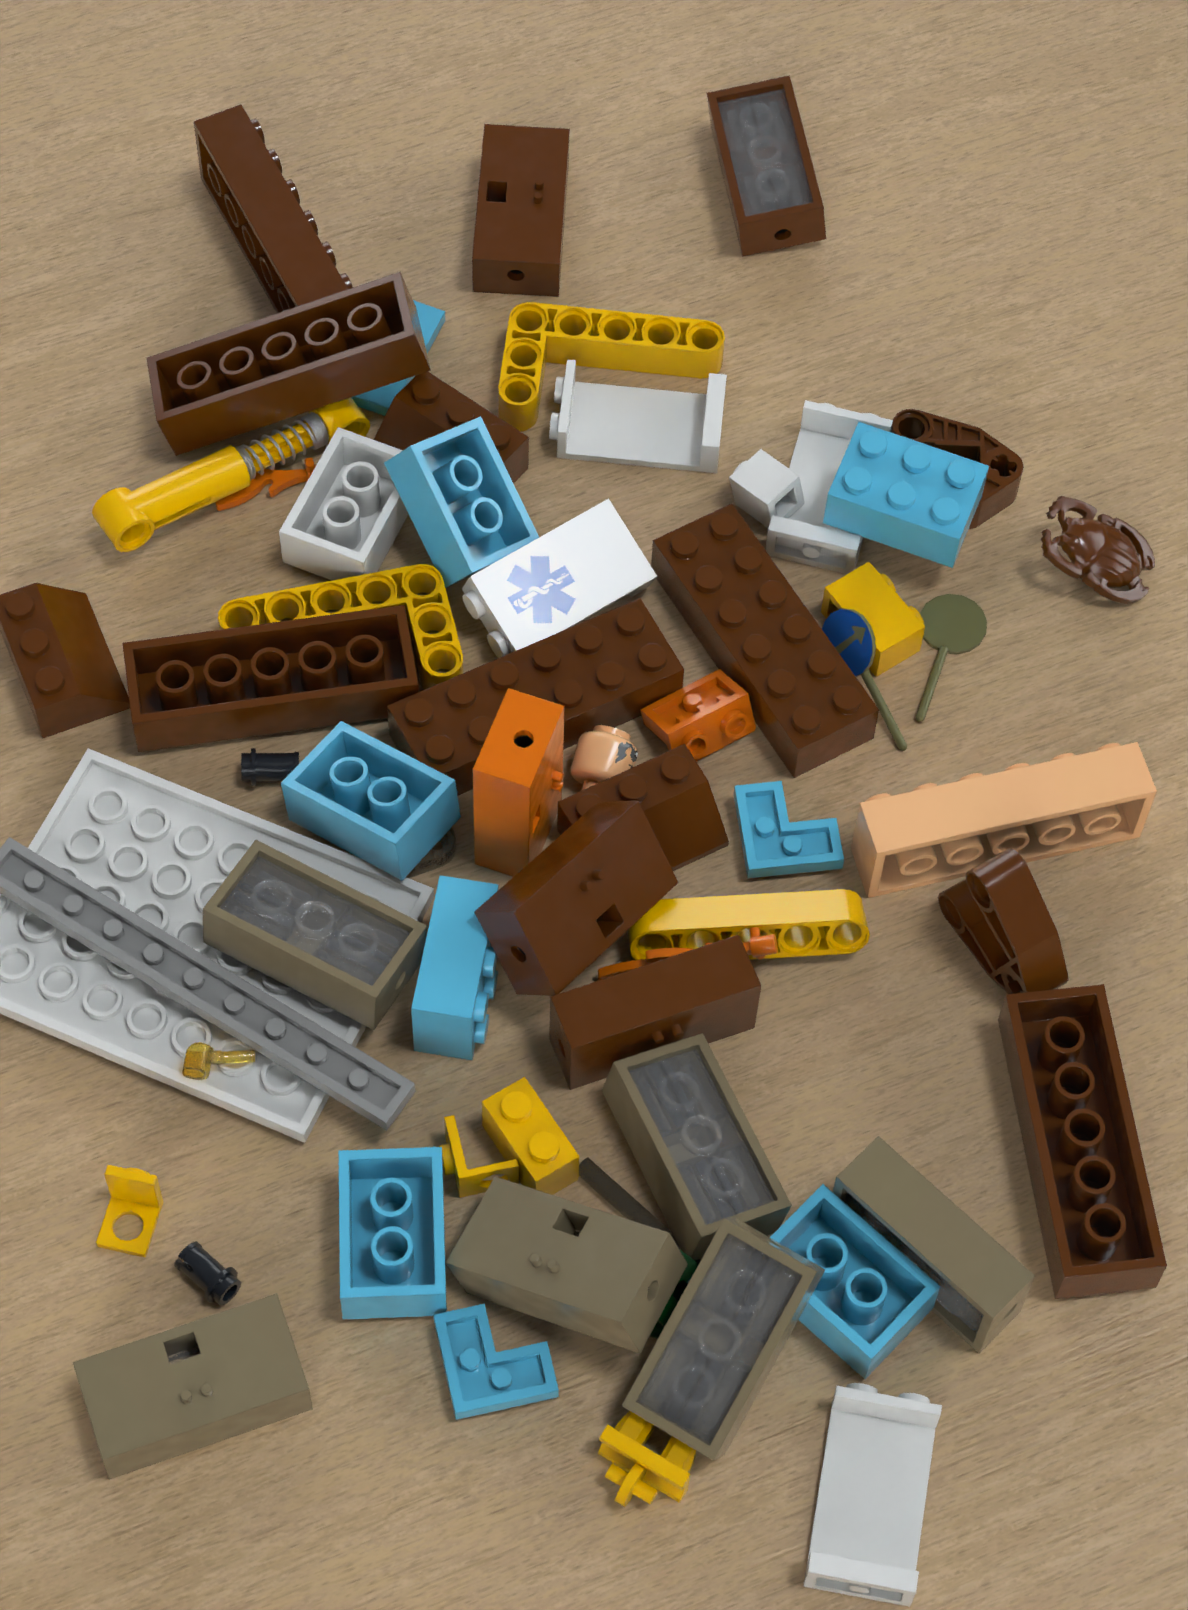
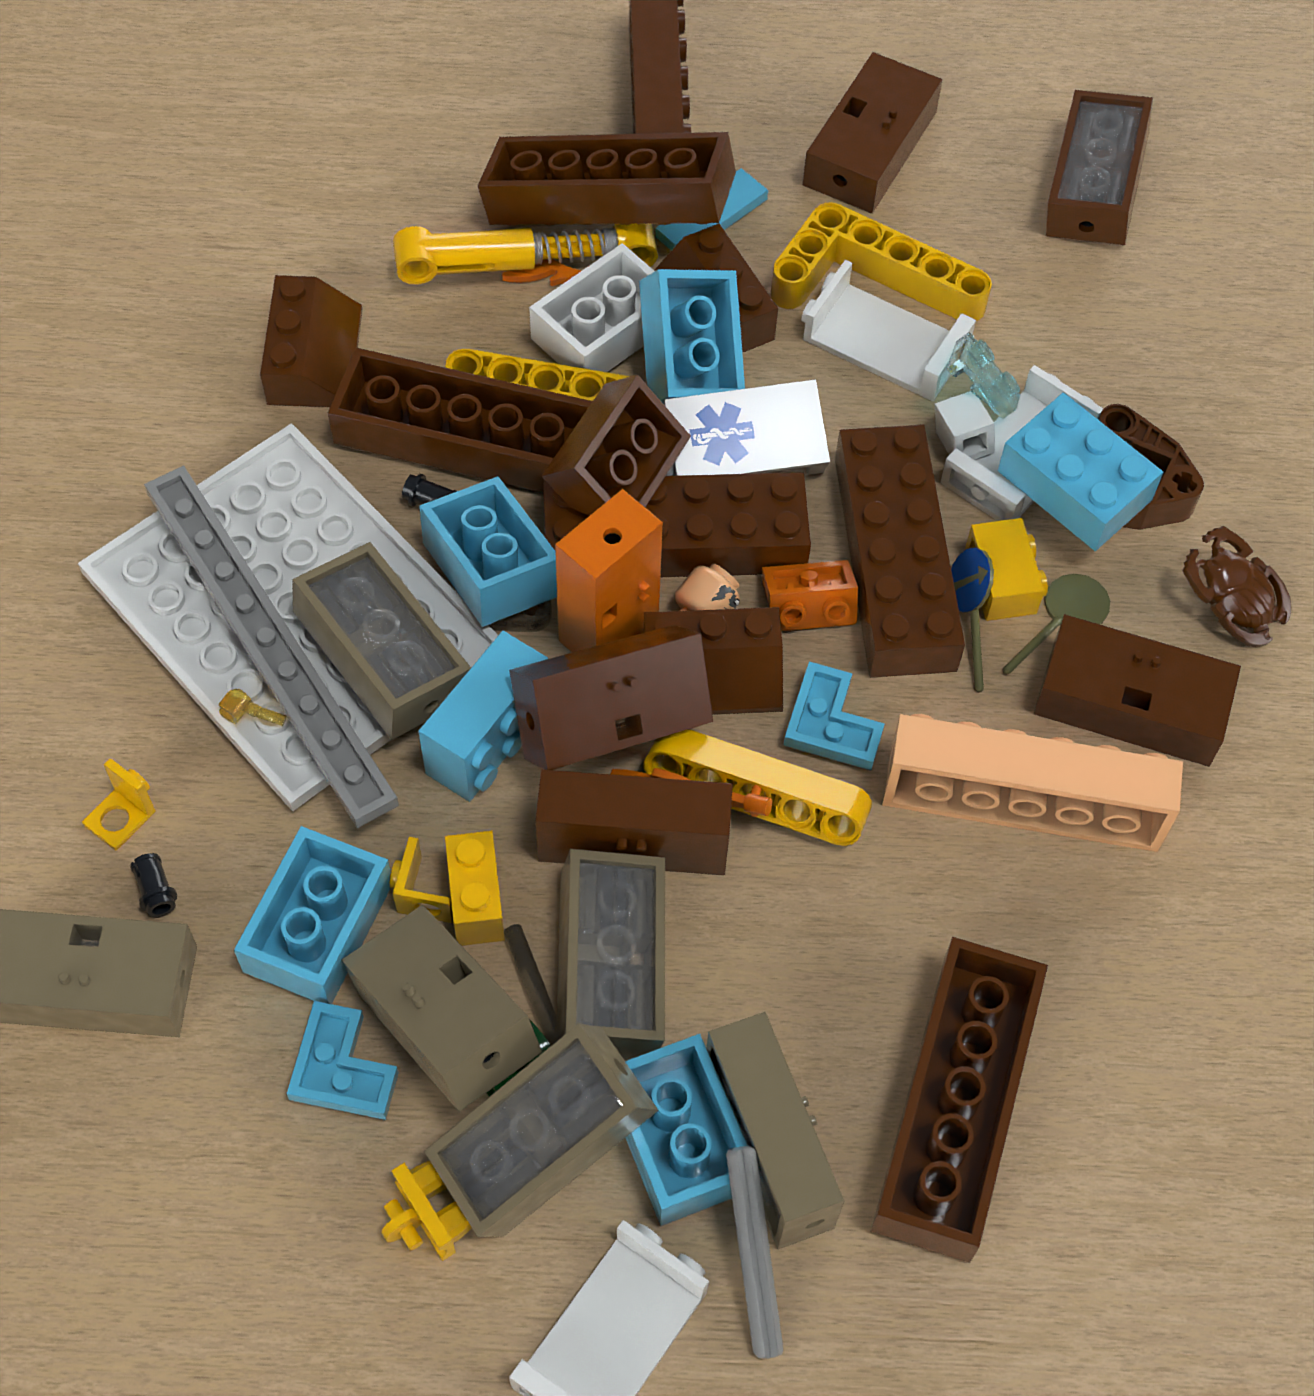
camera: 25 degrees right, 0 degrees up
(454, 650) = (618, 444): none -> reddish brown slope
(749, 418) = (990, 384): none -> clear light blue wing
(969, 1360) = (754, 1252): none -> light grey axle
(1006, 925) = (987, 876): reddish brown connector -> none
(1052, 689) = (1138, 690): none -> reddish brown brick

